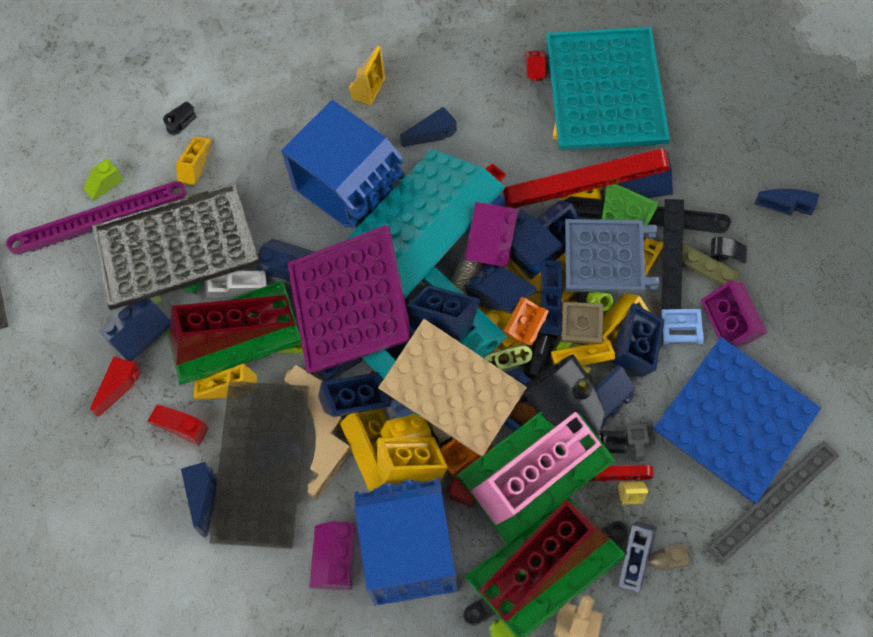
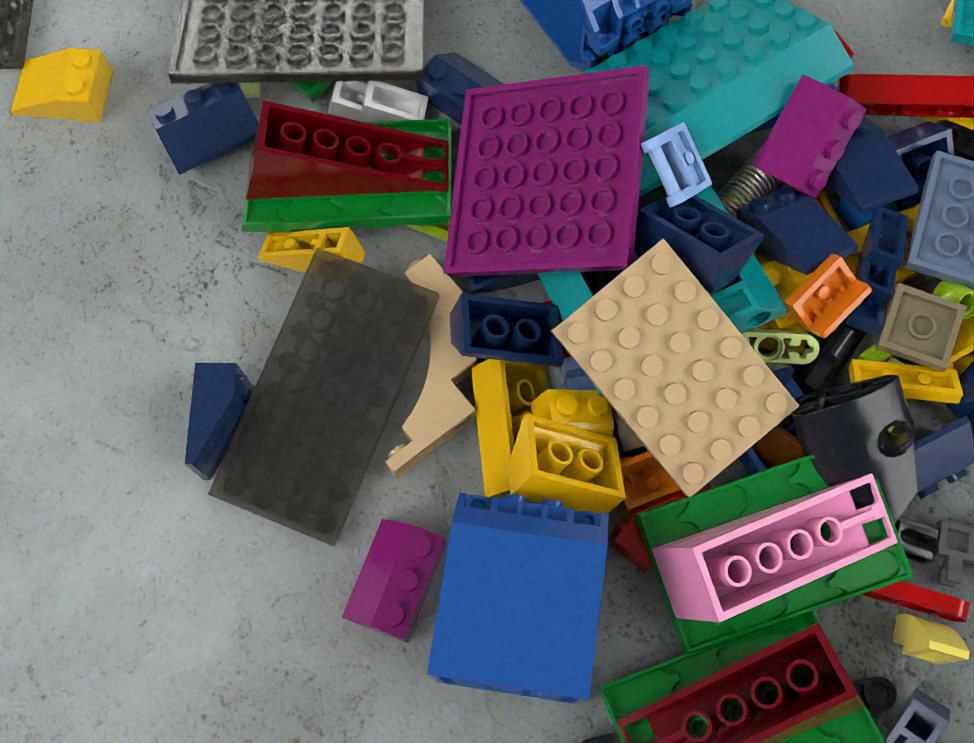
camera: 15 degrees right, 5 degrees up
(37, 330) = (64, 86): none -> yellow slope
(116, 382) = (148, 199): red slope -> none
(179, 424) = (223, 292): red slope -> none
(423, 270) = (677, 151): none -> light blue plate

